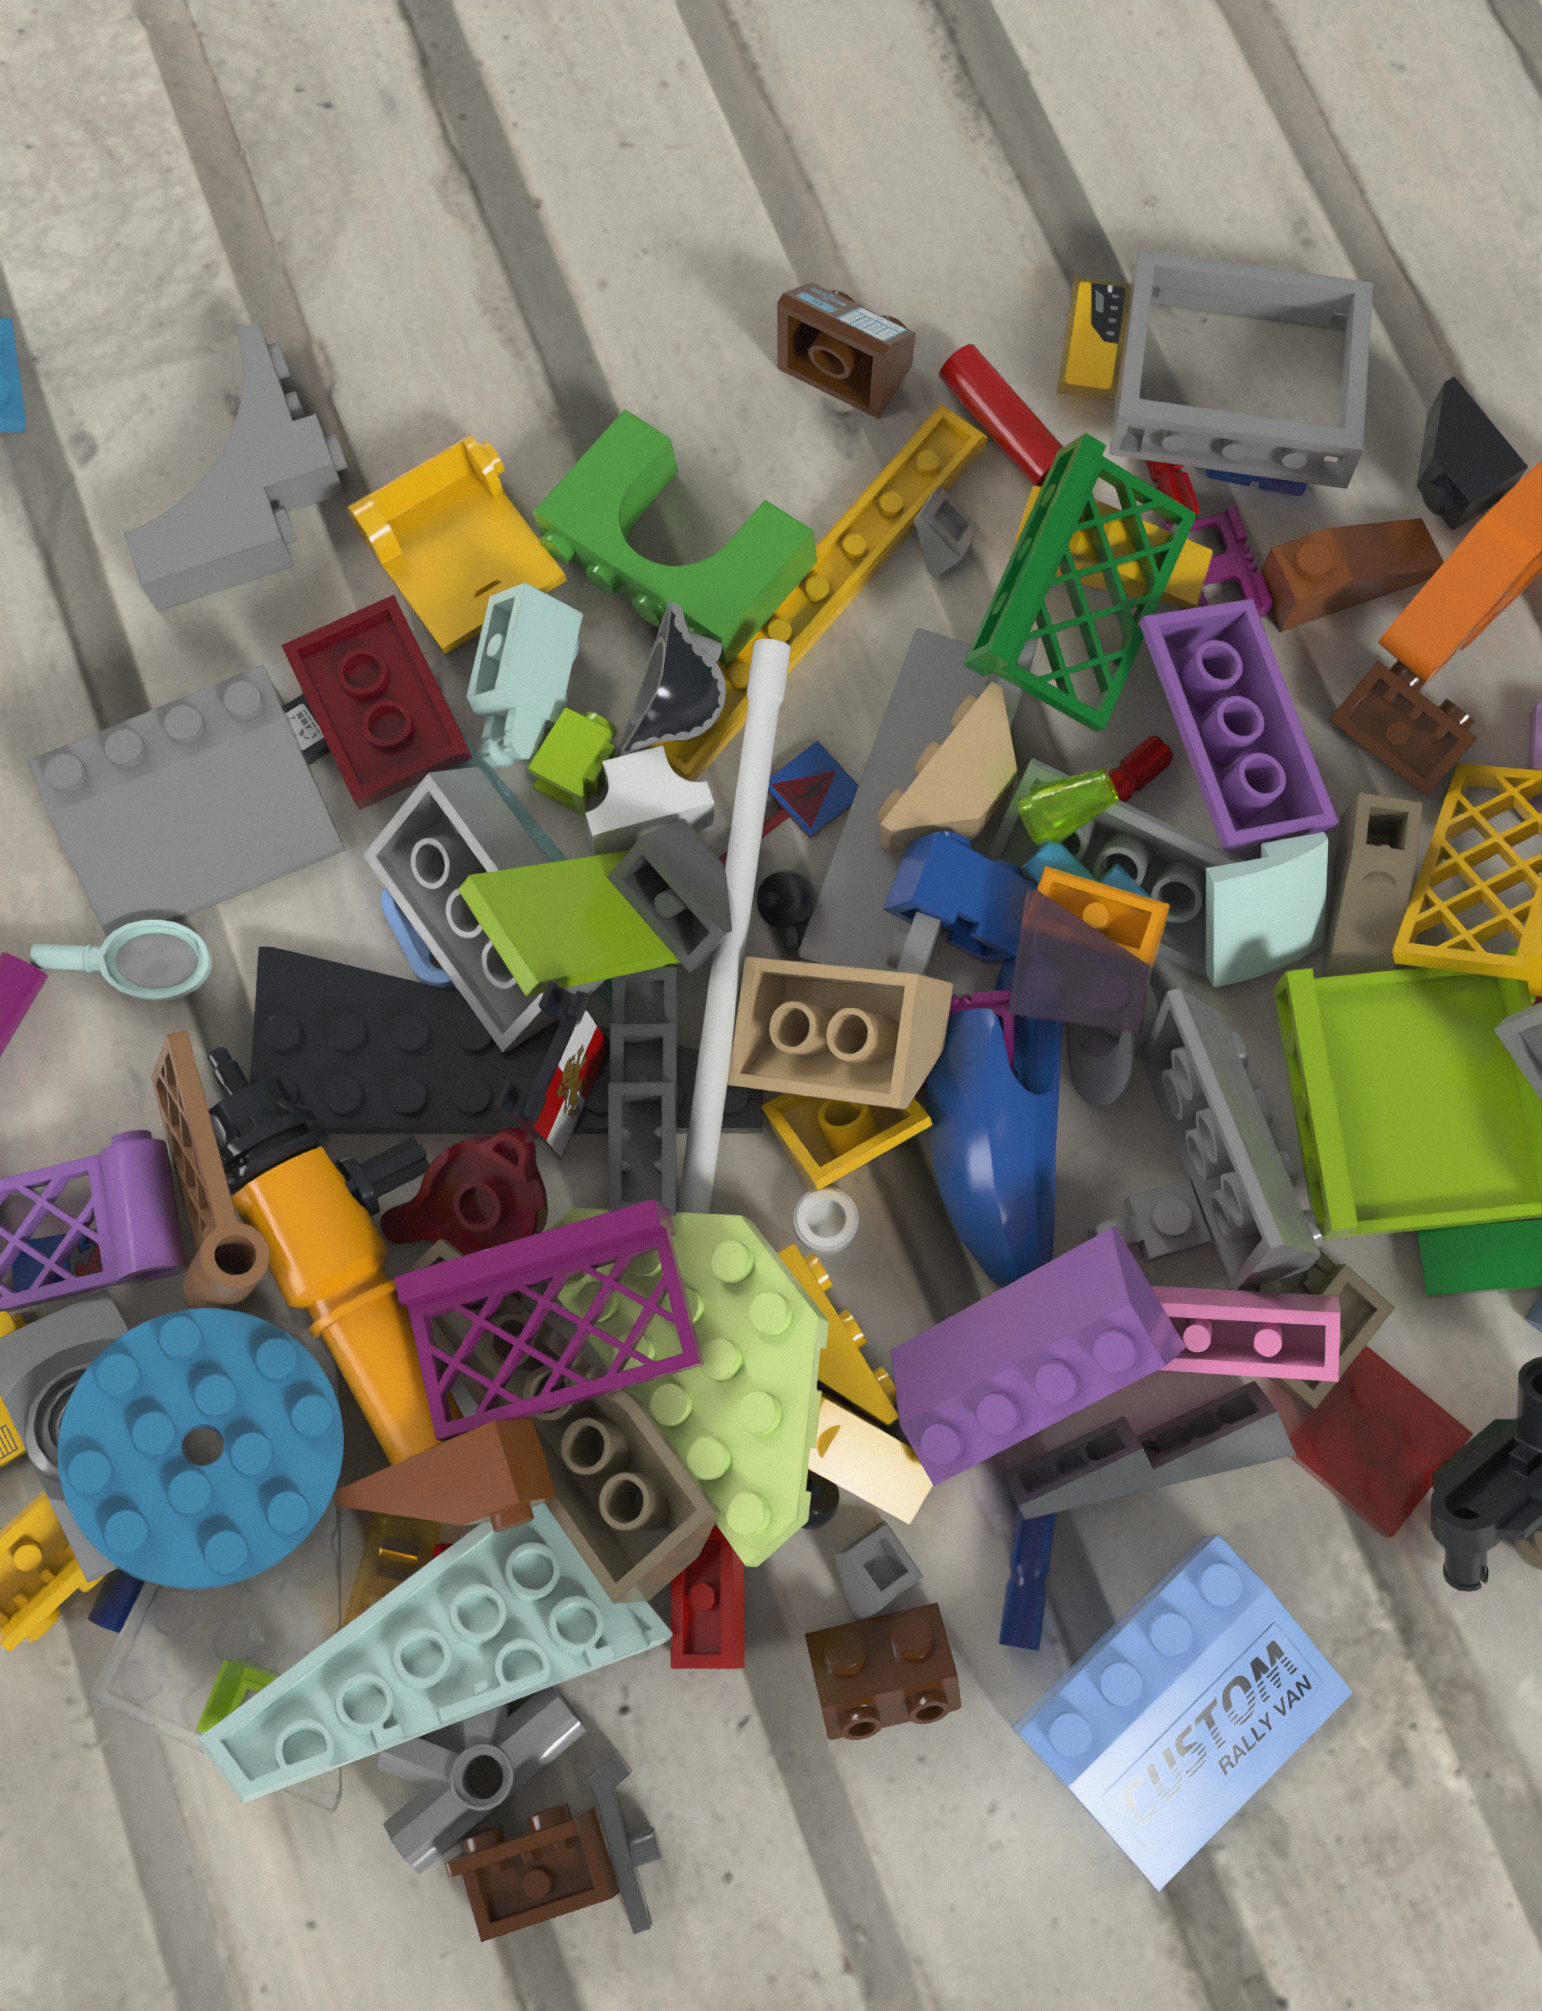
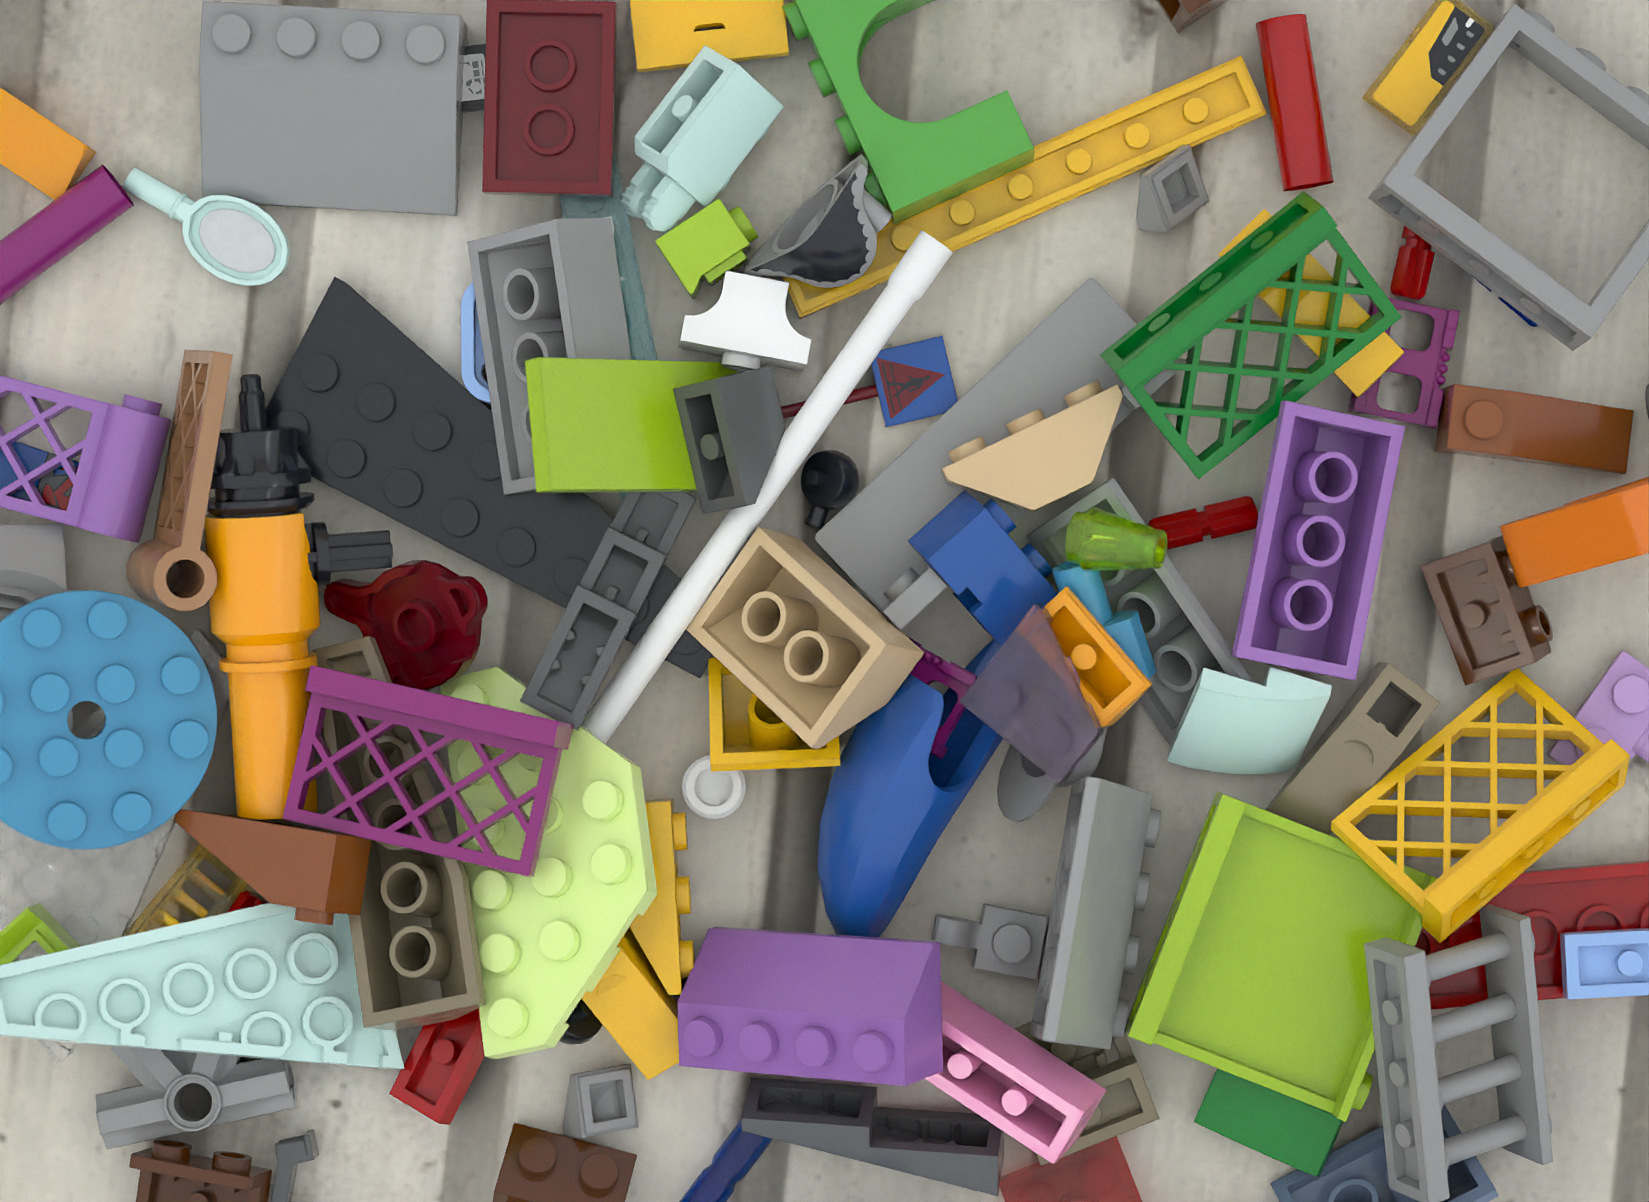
camera: 30 degrees right, 15 degrees up
(565, 1075) = (539, 564): flag -> none

